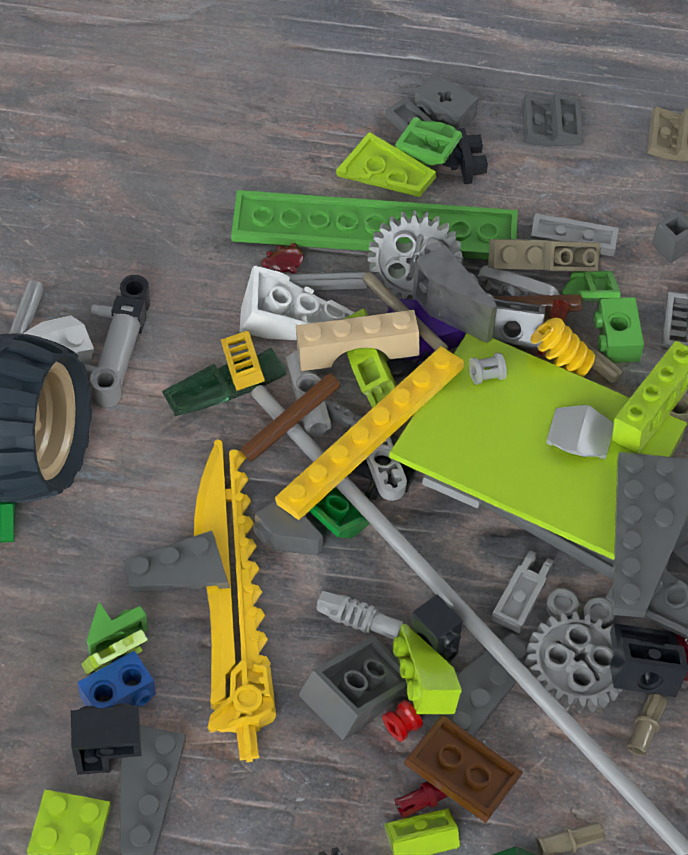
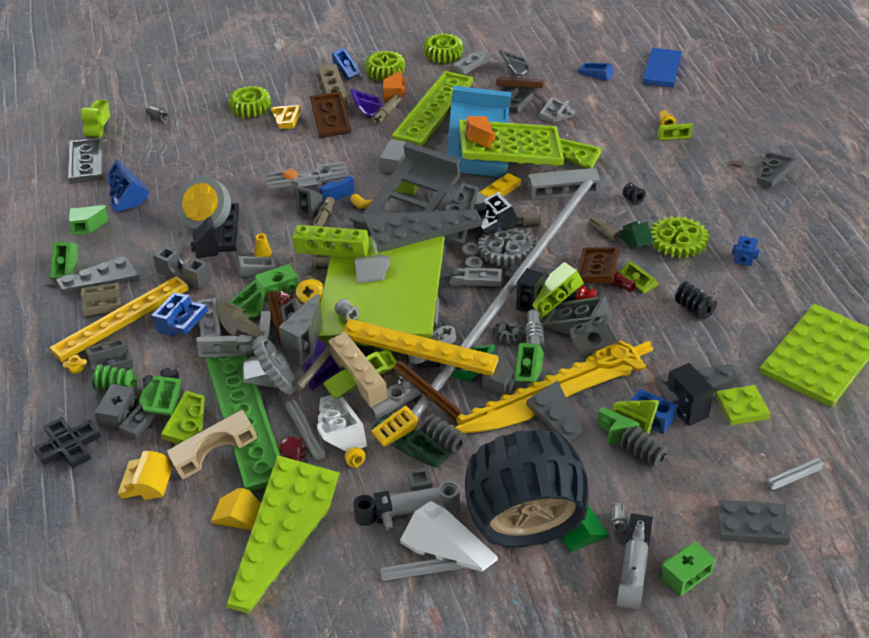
camera: 110 degrees left, 15 degrees down
(54, 642) = (644, 447): none -> dark grey piece
(152, 368) = (419, 479): none -> dark grey plate
(173, 222) = (289, 511): none -> lime wing
(209, 414) = (443, 434): none -> dark grey piece
(211, 182) = (237, 509): none -> yellow slope
(228, 313) = (354, 457): none -> yellow plate
(286, 569) = (529, 362): none -> bright green slope
(292, 671) = (588, 343): none -> dark grey brick
(308, 108) = (146, 476): none -> yellow brick
(319, 152) = (189, 454): none -> tan arch
(369, 592) = (506, 337): none -> dark grey gear
(409, 50) = (67, 442): none -> black plate
(492, 224) = (224, 346): none -> light grey hinge
(494, 110) = (105, 377): none -> bright green piece
(553, 84) = (75, 364): none -> yellow plate
(587, 194) = (178, 315): none -> blue brick
(622, 141) = (117, 319): none -> yellow plate

